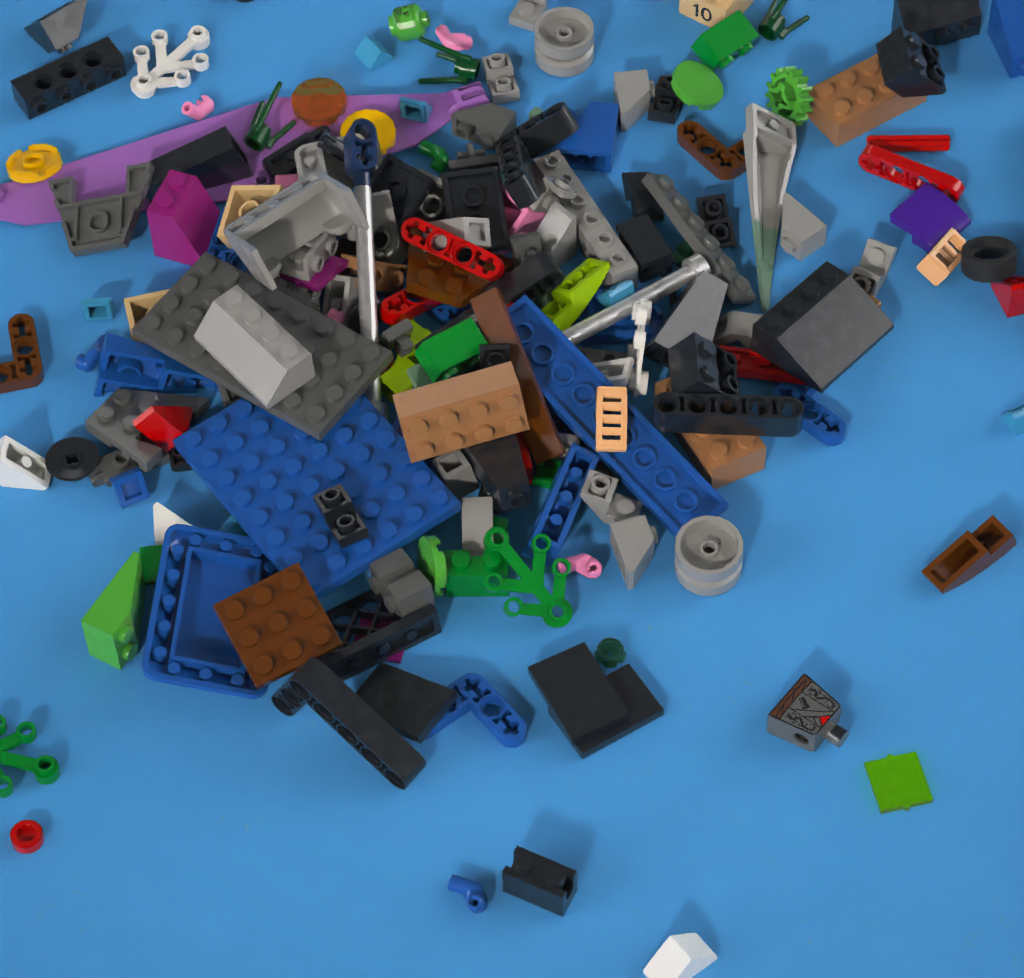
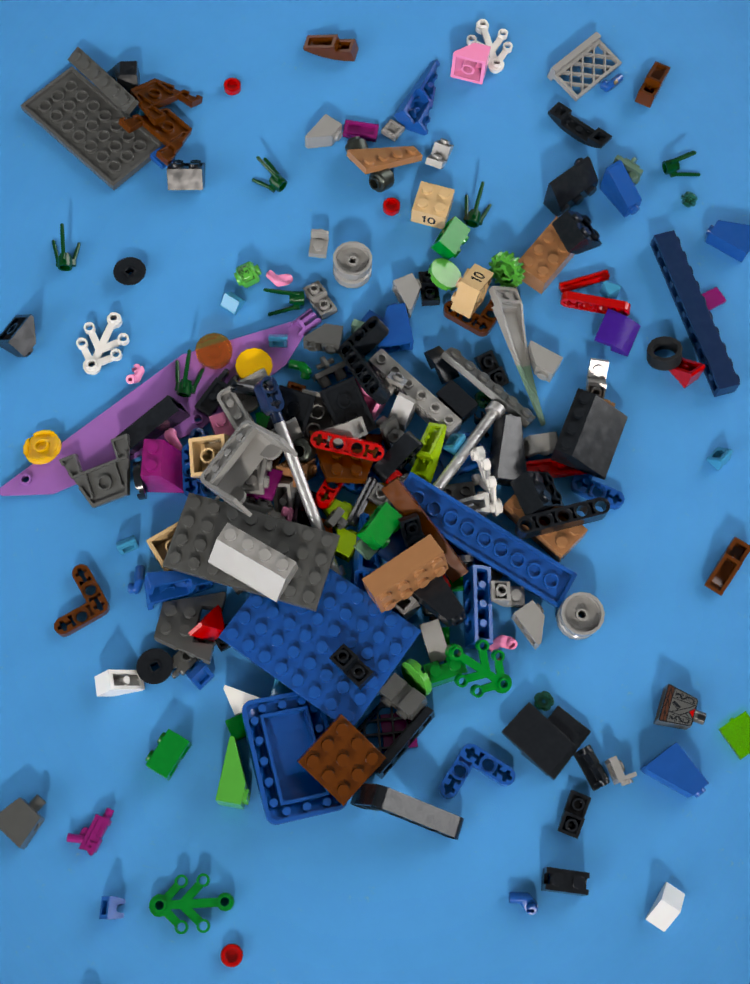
camera: 25 degrees left, 15 degrees up
(44, 568) = (167, 754): none -> green brick
(68, 78) = (42, 365): black brick -> none
(144, 247) = (138, 481): none -> black tile
(215, 190) = (171, 437): none -> bright pink arm
(406, 700) = (433, 780): black tile -> none
(594, 806) = (574, 813): none -> black slope
(611, 399) = (499, 541): light nougat slope -> none
(644, 753) = (591, 767): none -> black hinge
(682, 776) = (616, 771): none -> light grey bracket
(720, 108) = (471, 290): none -> tan brick
(768, 793) = (676, 772): none -> blue slope
(942, 160) = (610, 290): none -> dark azure slope
(942, 258) = (635, 359): light nougat slope -> none

